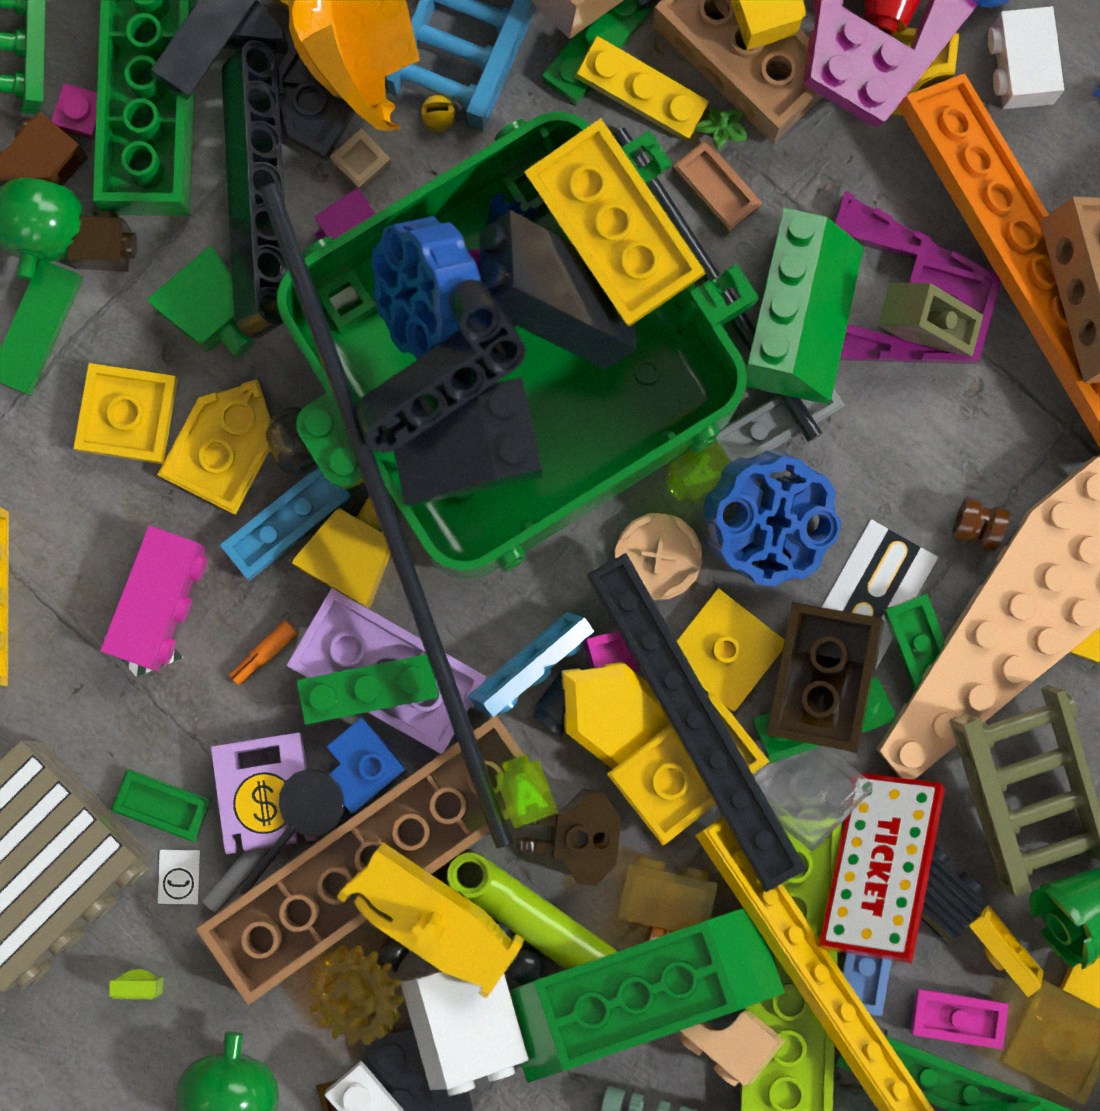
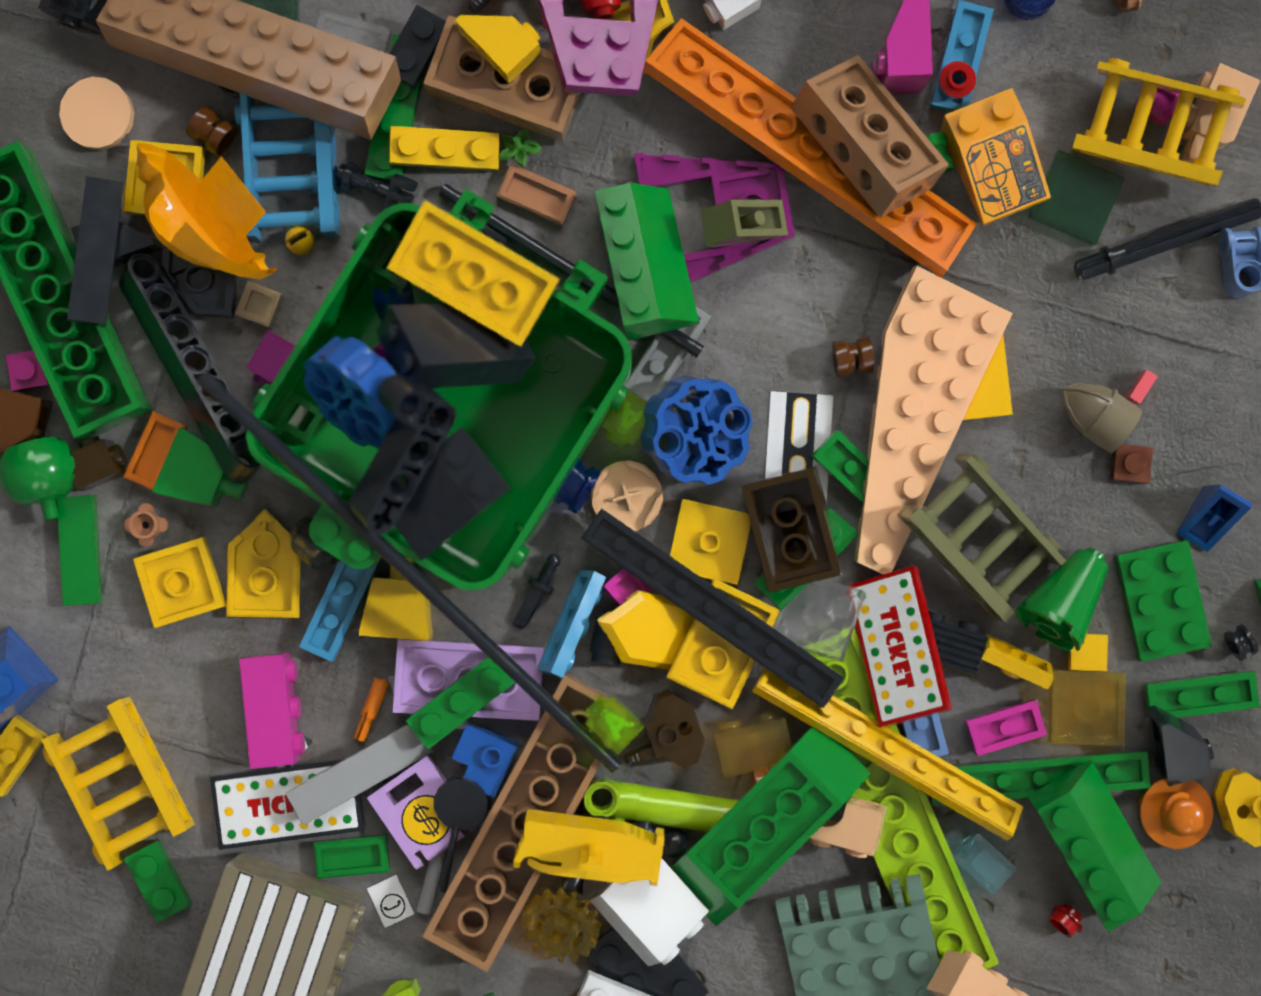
camera: 25 degrees left, 5 degrees up
(109, 328) = (135, 524): none -> nougat plate
(120, 712) = (256, 811): none -> tile
(167, 258) = (152, 450): none -> orange tile
(214, 714) = (356, 773): none -> light grey tile
(509, 612) = (537, 591): none -> black piece
(524, 71) = (348, 176): none -> black hinge
(609, 517) = (577, 486): none -> clear blue wheel

